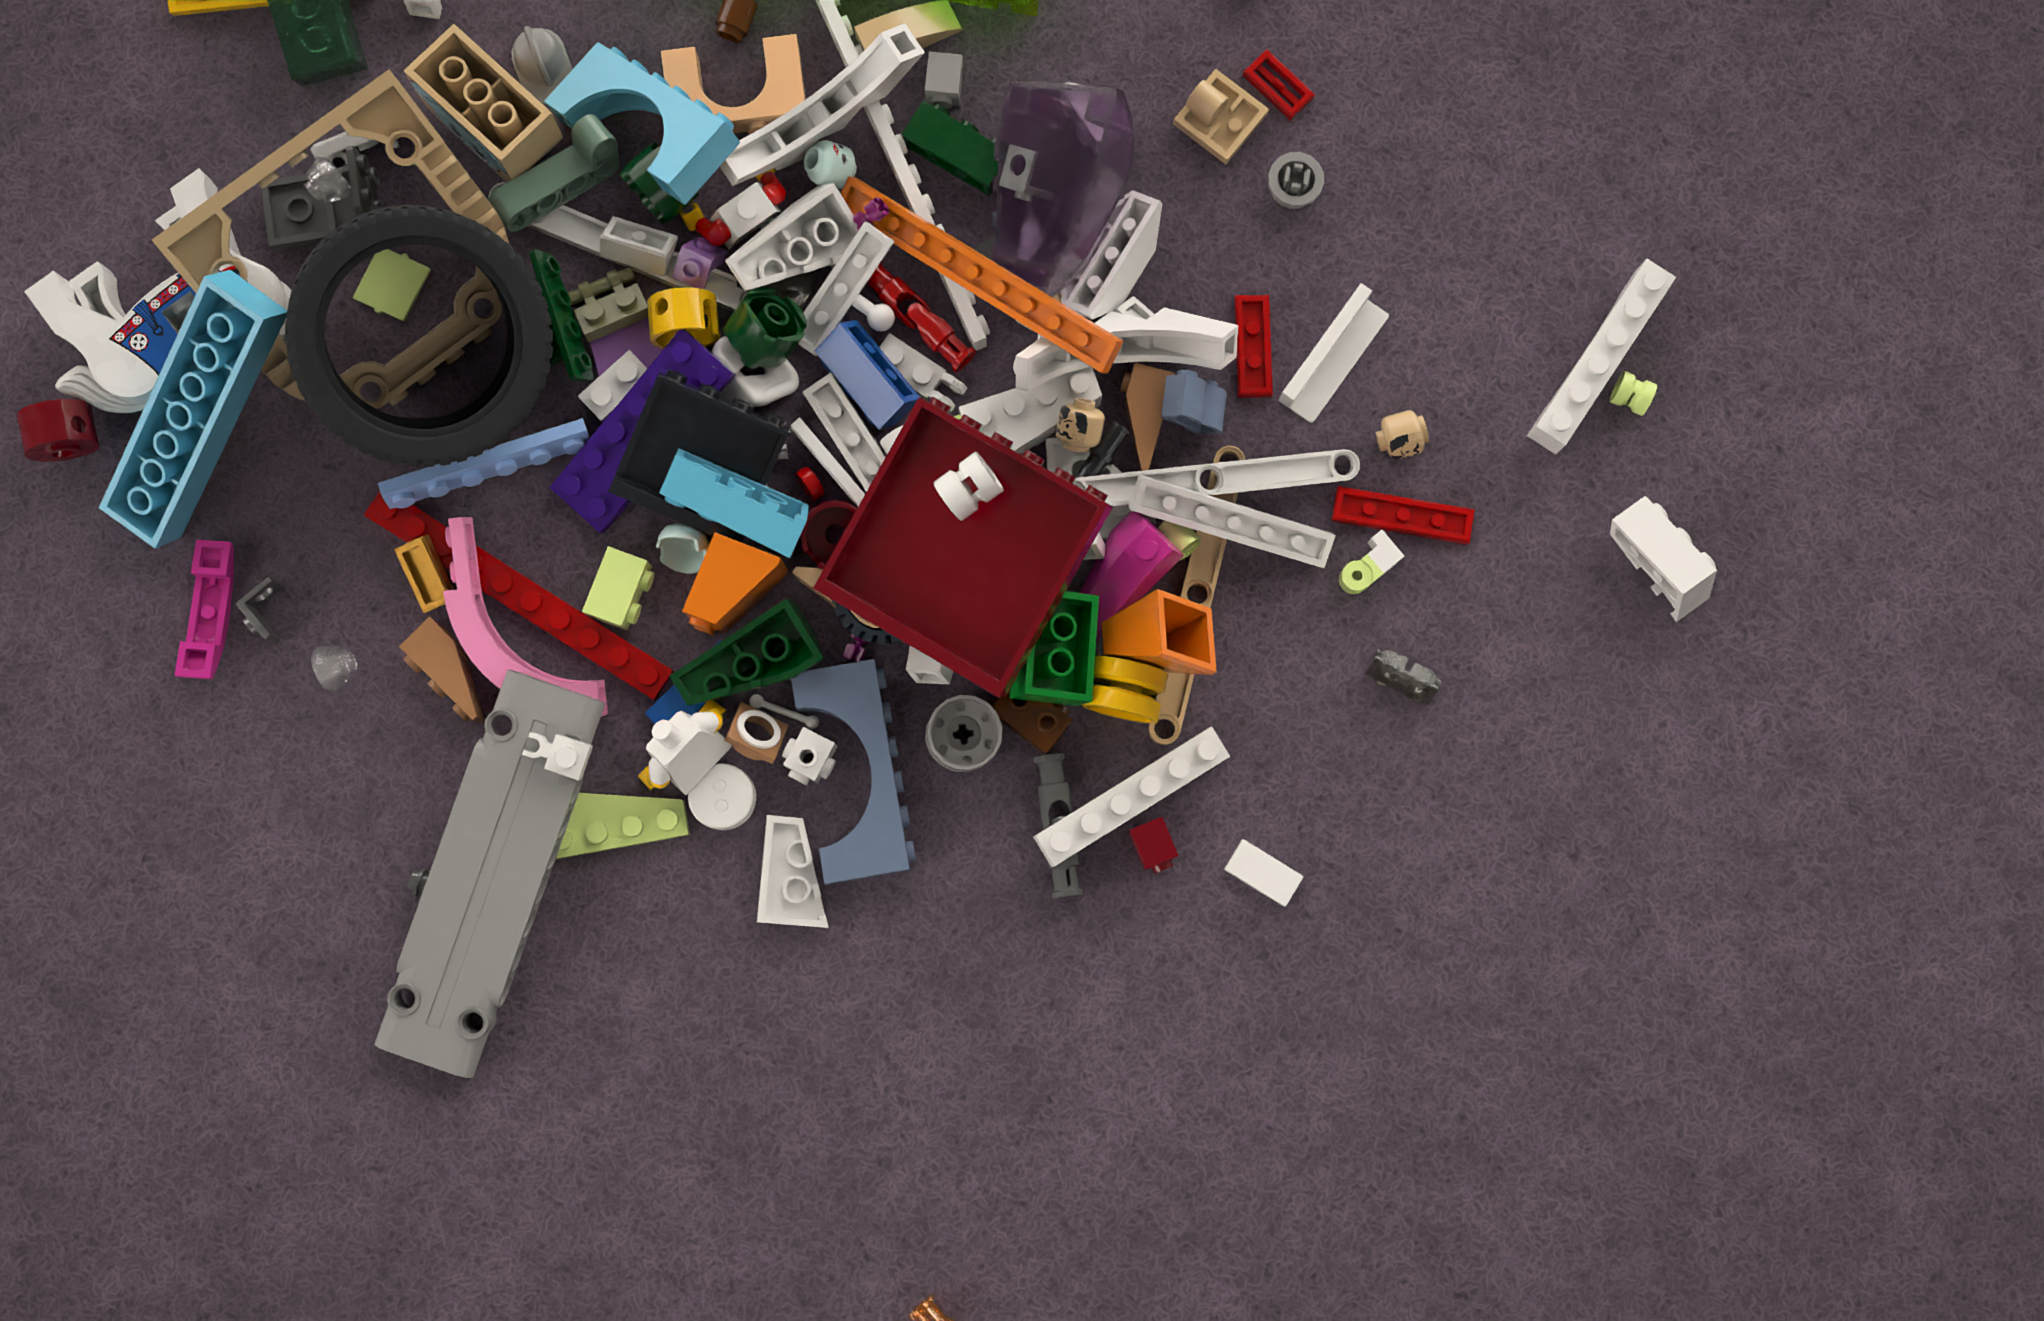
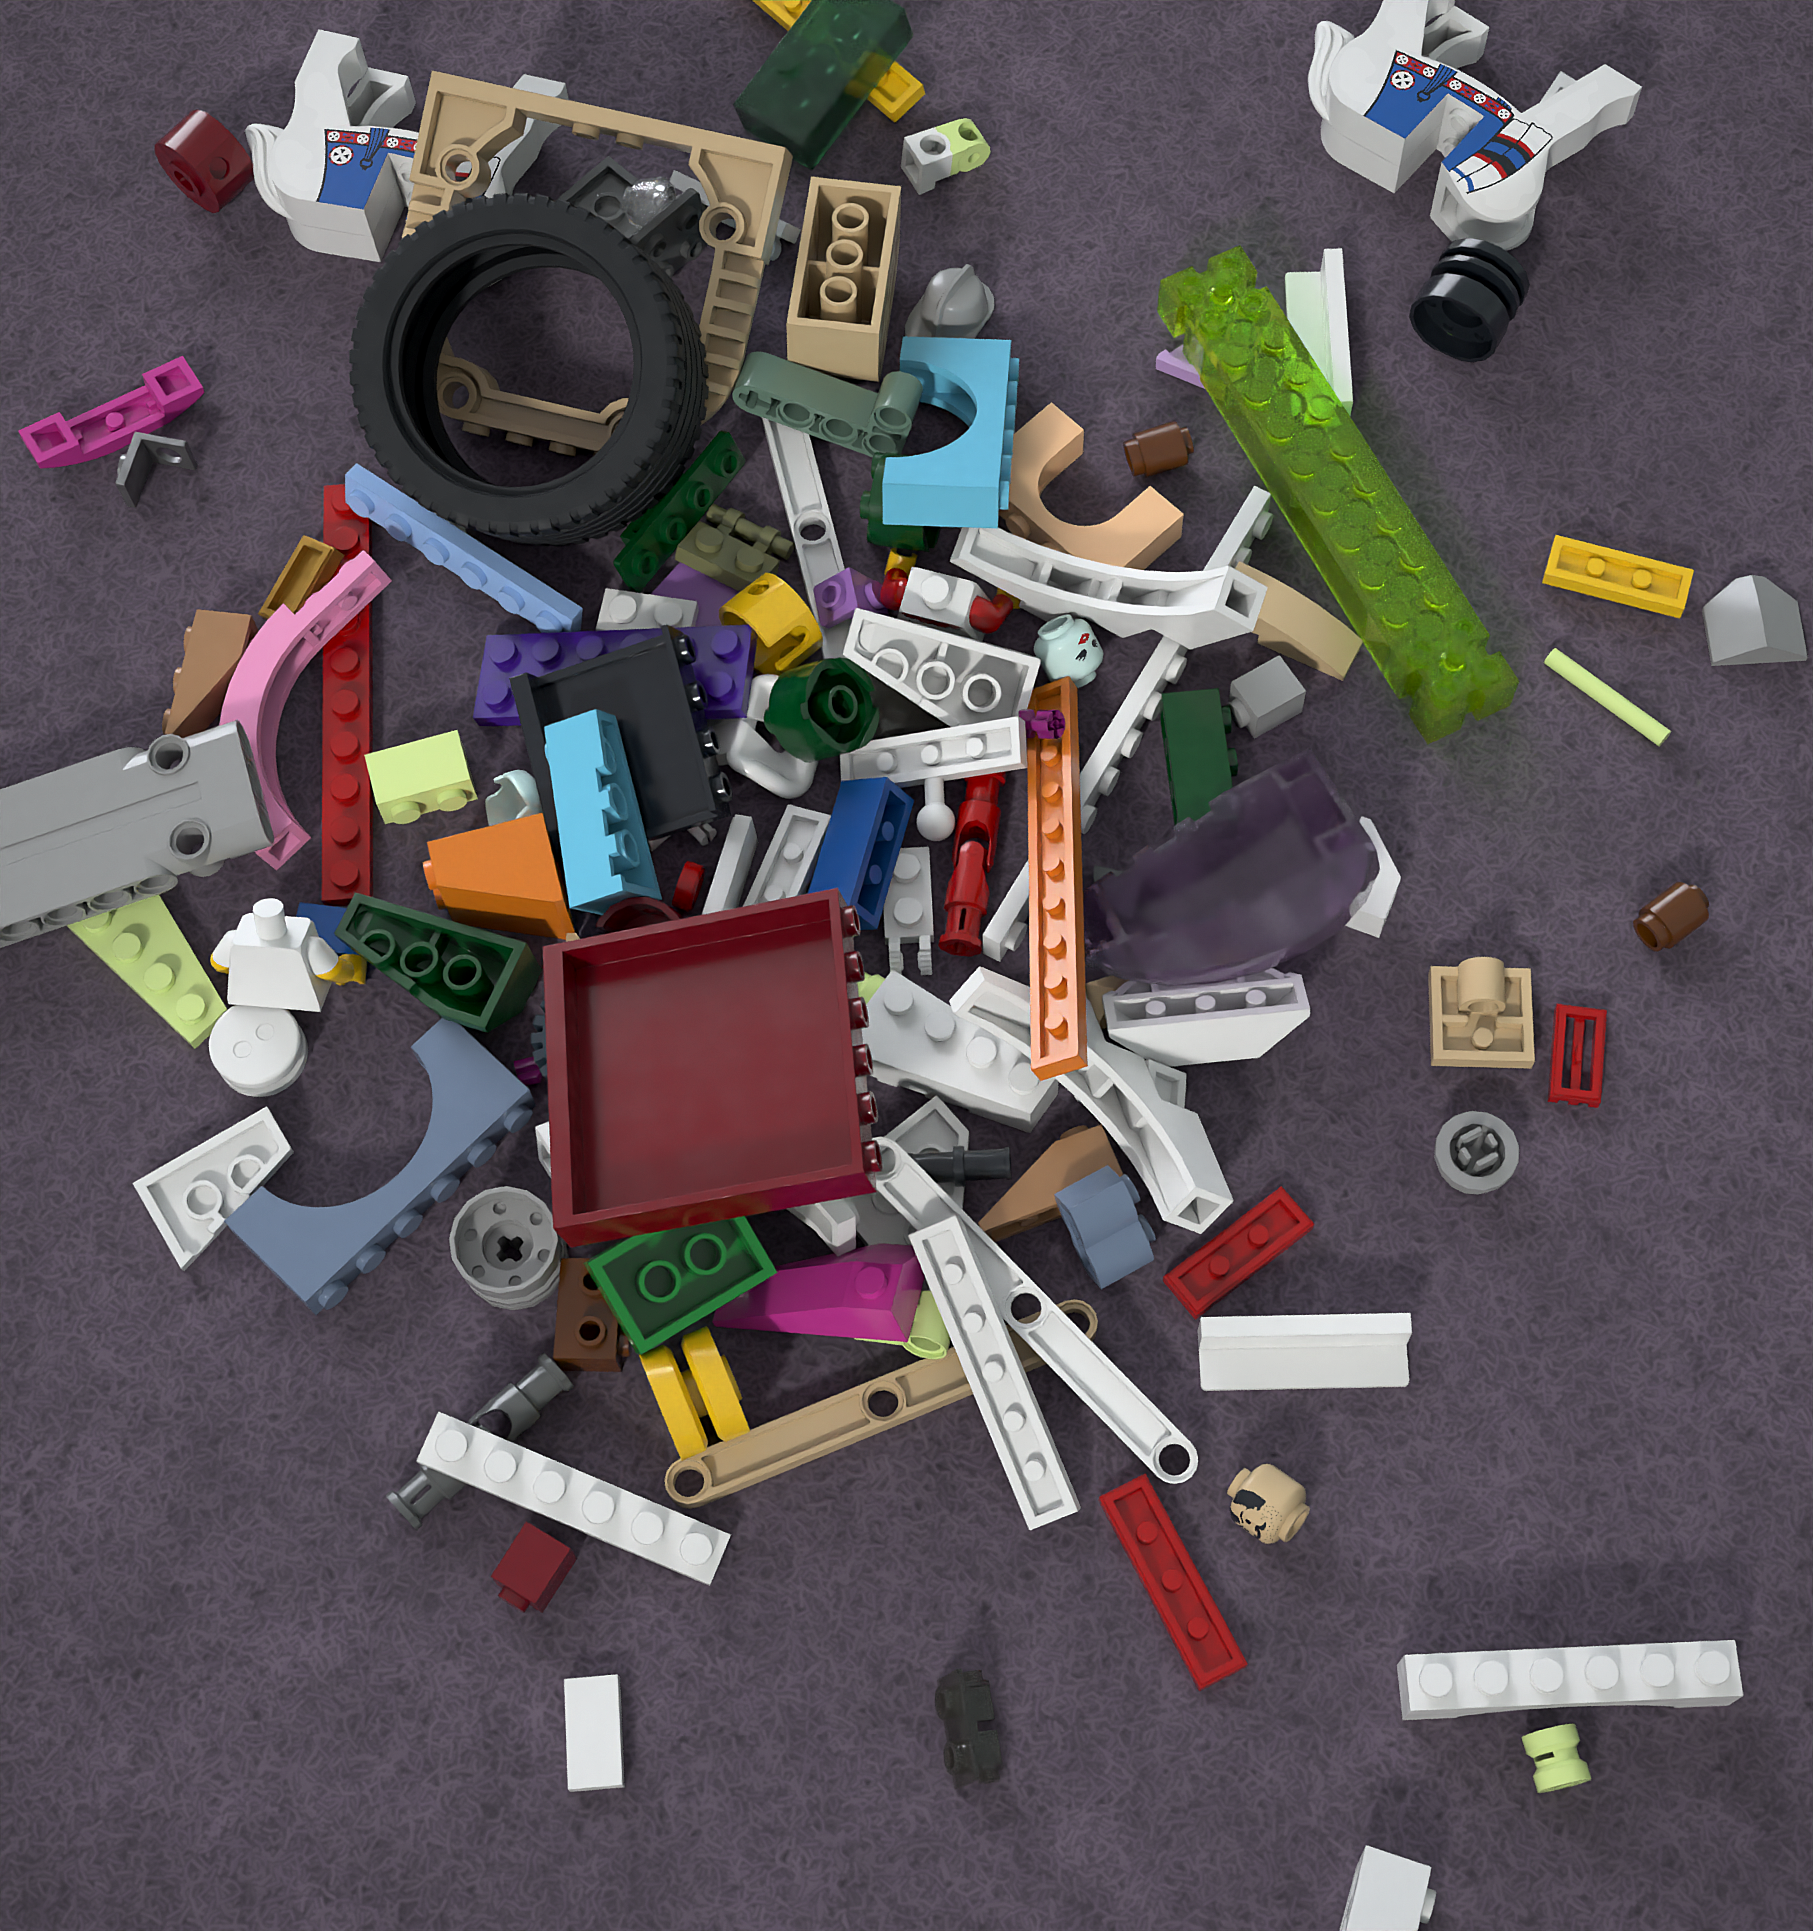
camera: 60 degrees right, 15 degrees down
(193, 407) = (295, 240): medium azure brick -> none
(333, 666) = (134, 568): clear cone -> none
(391, 284) = (594, 345): yellowish green piece -> none
(563, 756) = (177, 836): white plate -> none
(637, 245) = (821, 531): white slope -> none
(747, 745) = (330, 1034): medium nougat piece -> none
(757, 702) = (399, 1011): white hinge -> none
(805, 744) = (367, 1104): white brick -> none
(958, 494) = (767, 1006): white wheel -> none
(1021, 182) = (1197, 843): flat silver bracket -> none
(1080, 425) = (970, 1111): tan head -> none
(1163, 634) = (788, 1380): orange slope -> none
(1362, 573) = (1074, 1585): leg -> none

